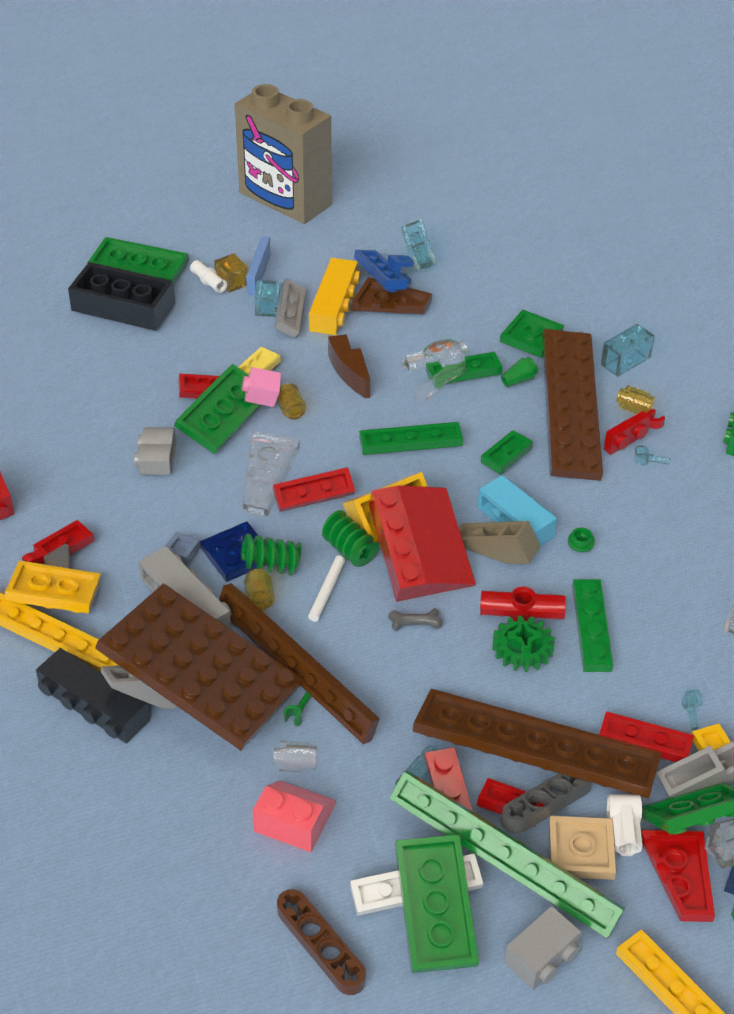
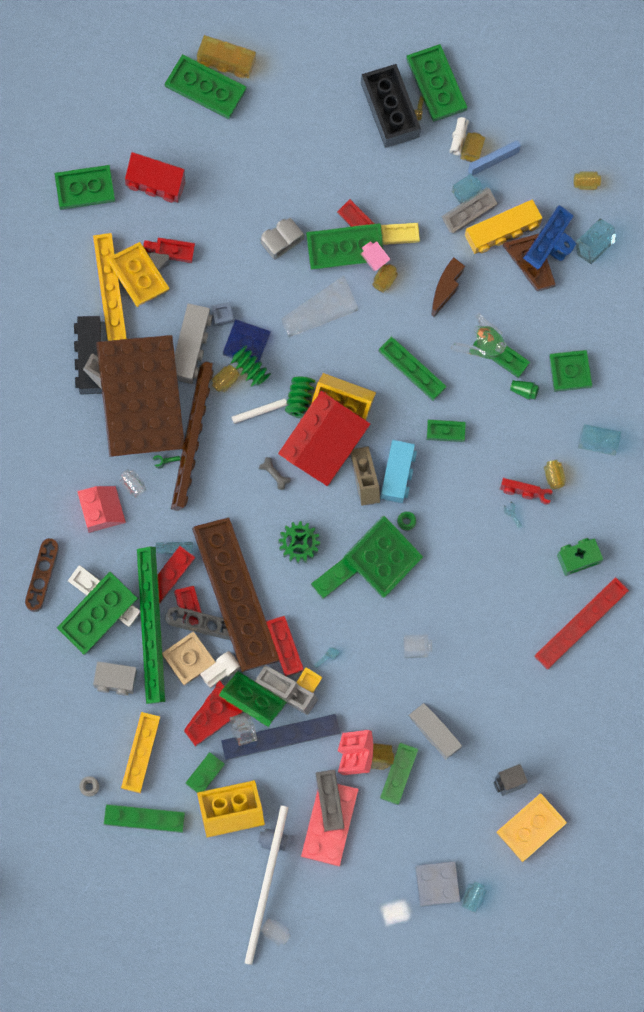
camera: 45 degrees right, 30 degrees up
(284, 153) = (592, 95): dark tan brick -> none
(313, 489) = (323, 347): red plate -> none
(351, 224) = (587, 180): none -> clear yellow brick
(523, 603) = (320, 513): red piece -> none
(571, 405) = (520, 438): reddish brown plate -> none
(611, 577) = (383, 556): none -> green plate

